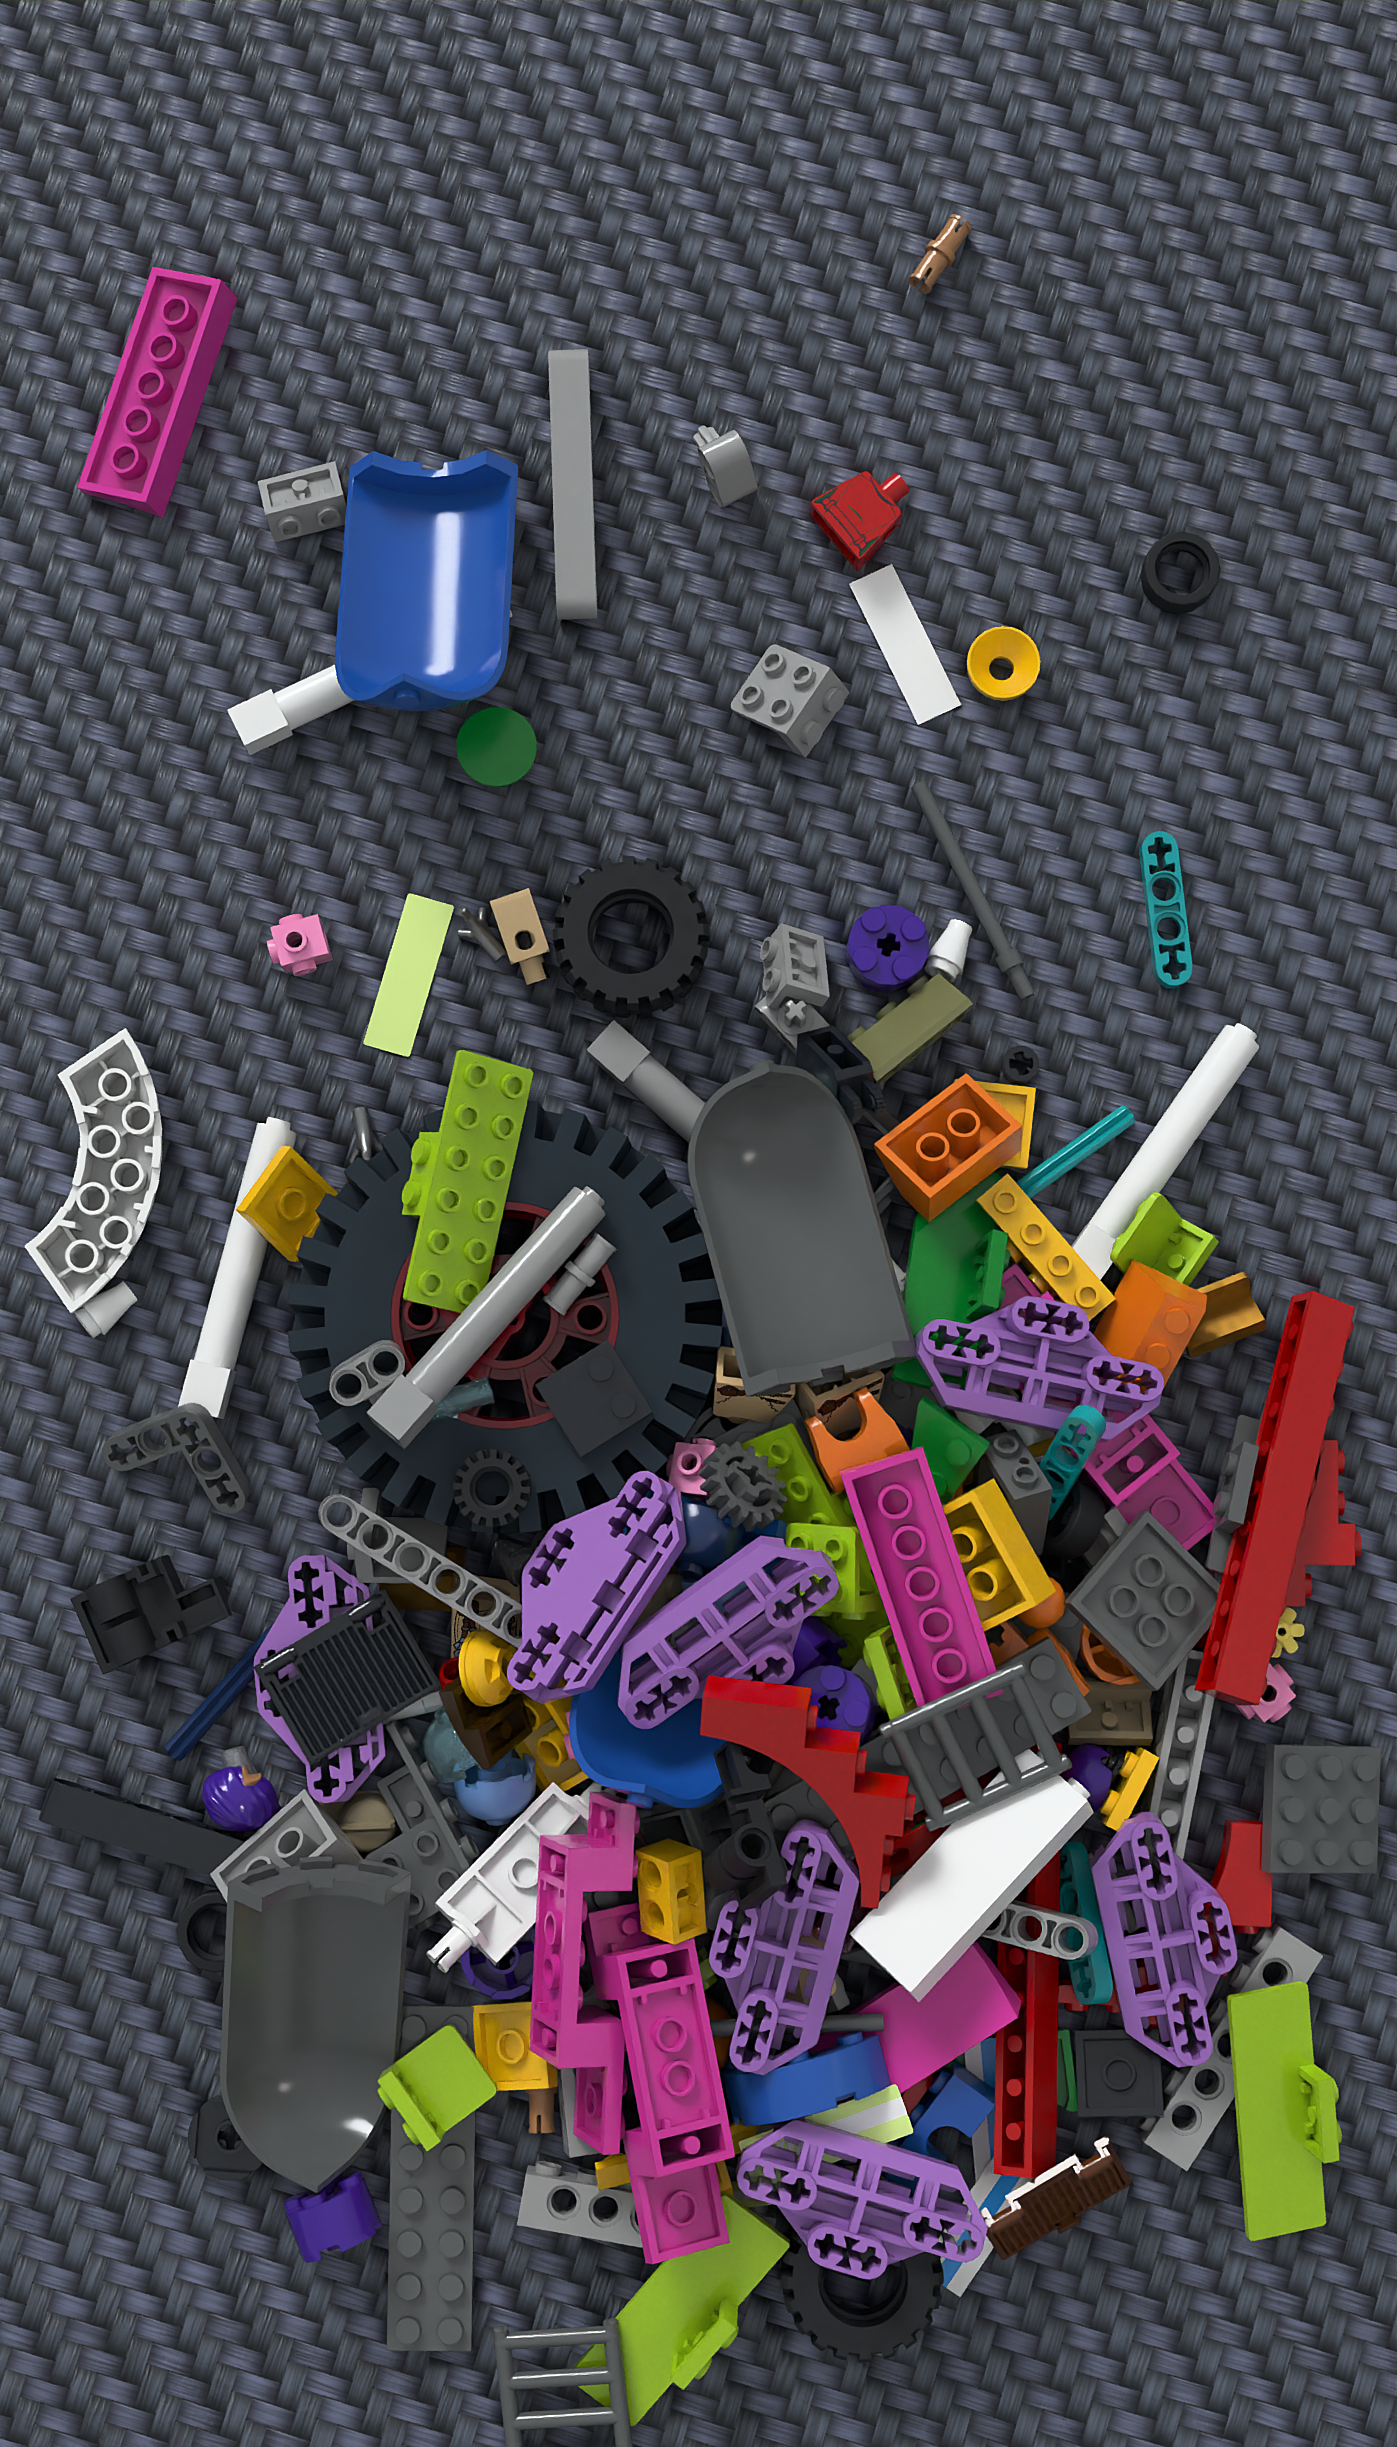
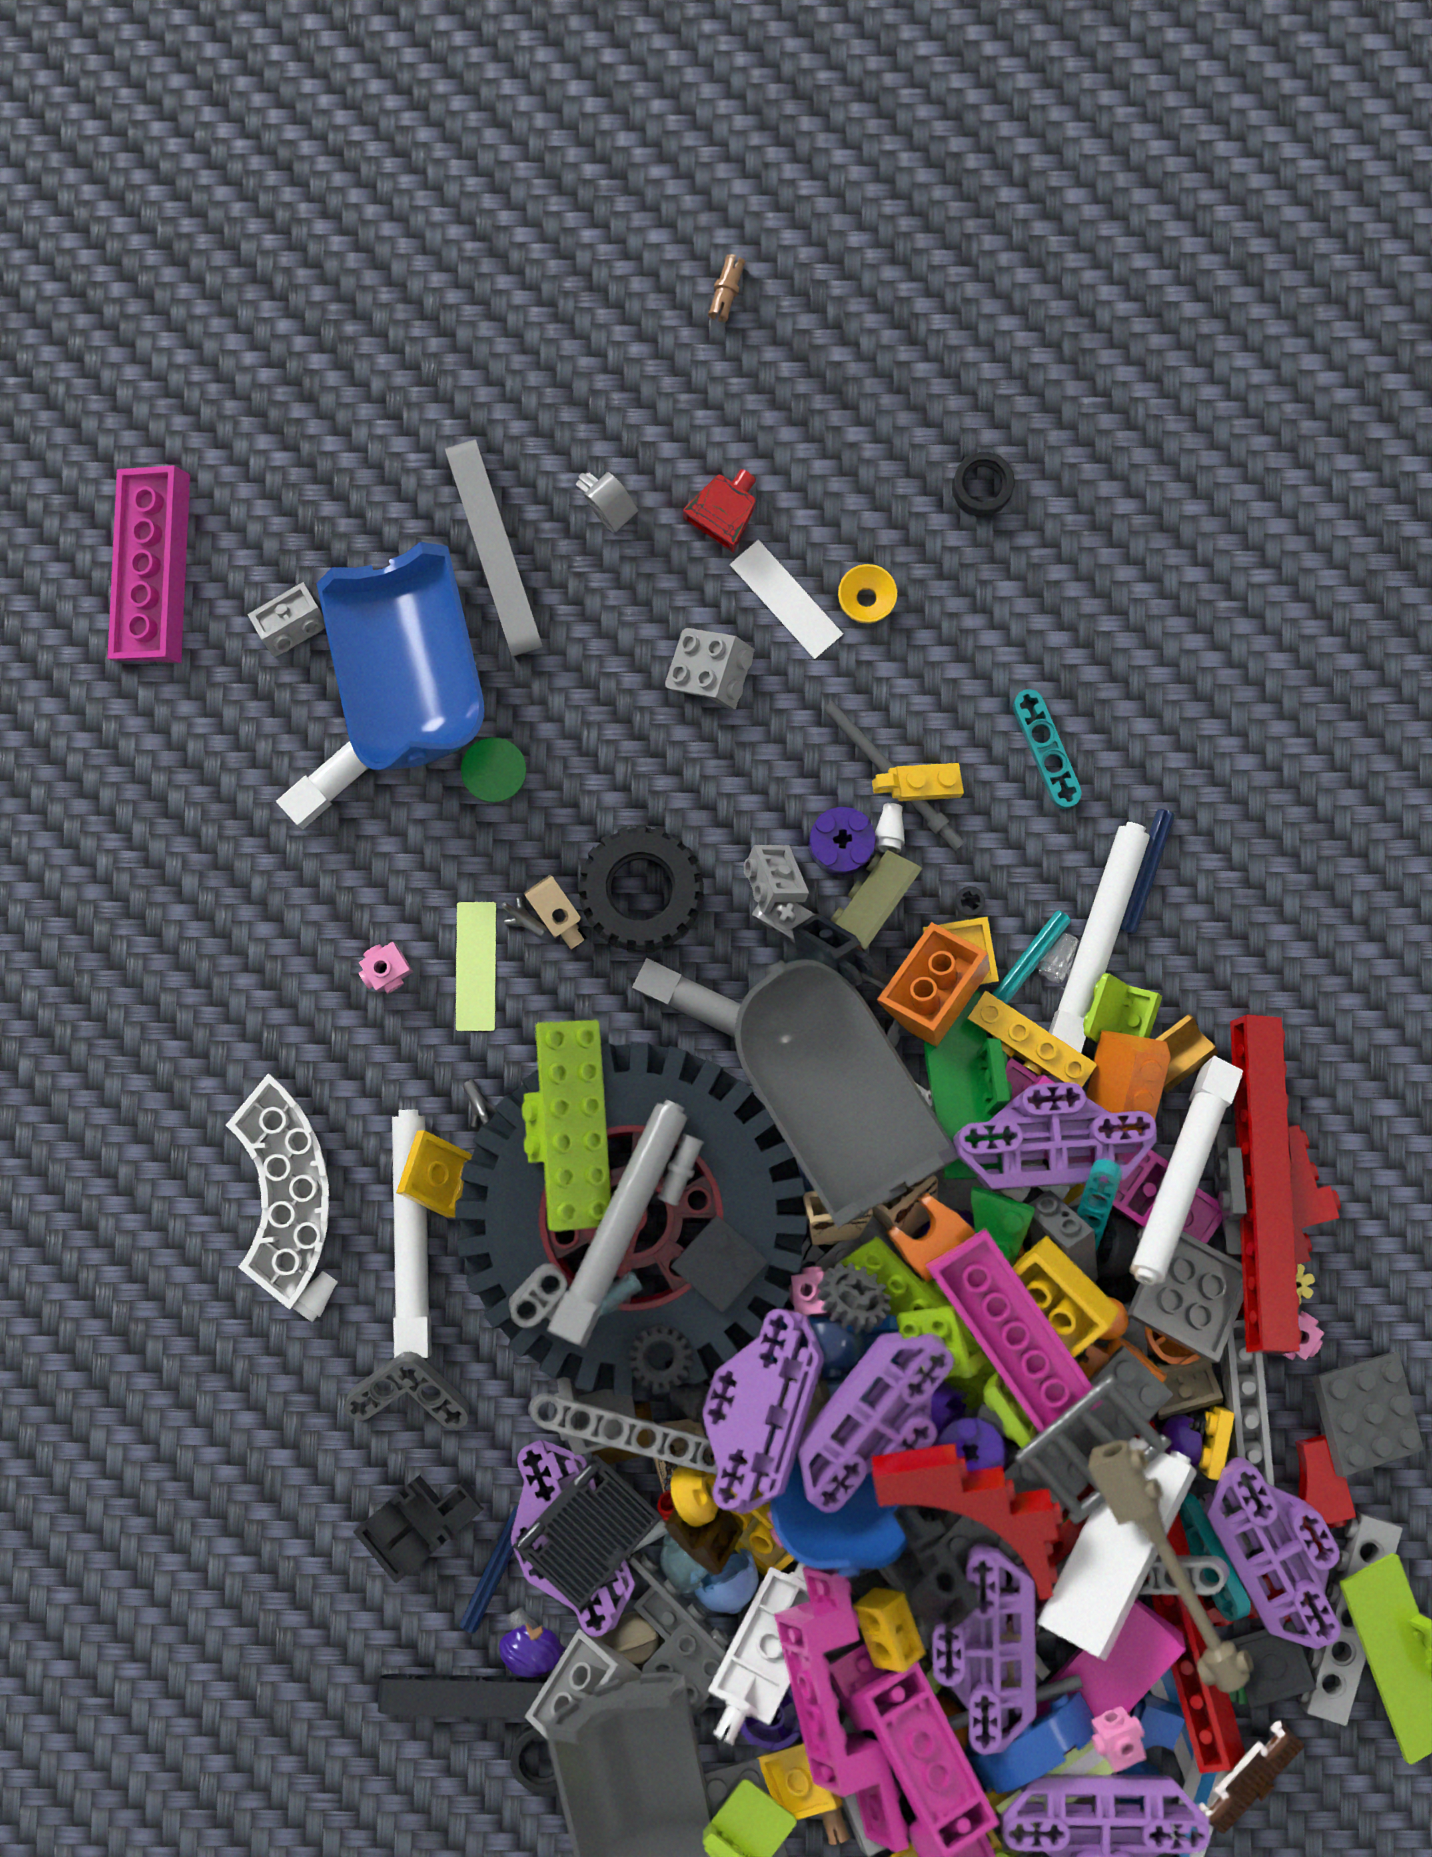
camera: 15 degrees left, 0 degrees up
(907, 2100) = (1118, 1738): none -> bright pink brick
(1002, 905) = (921, 782): none -> yellow hinge
(1007, 1815) = (1134, 1498): none -> dark tan bar
(1106, 1164) = (1059, 959): none -> clear cone
(1236, 1381) = (1209, 1097): none -> white brick
(1244, 1088) = (1158, 836): none -> dark blue axle

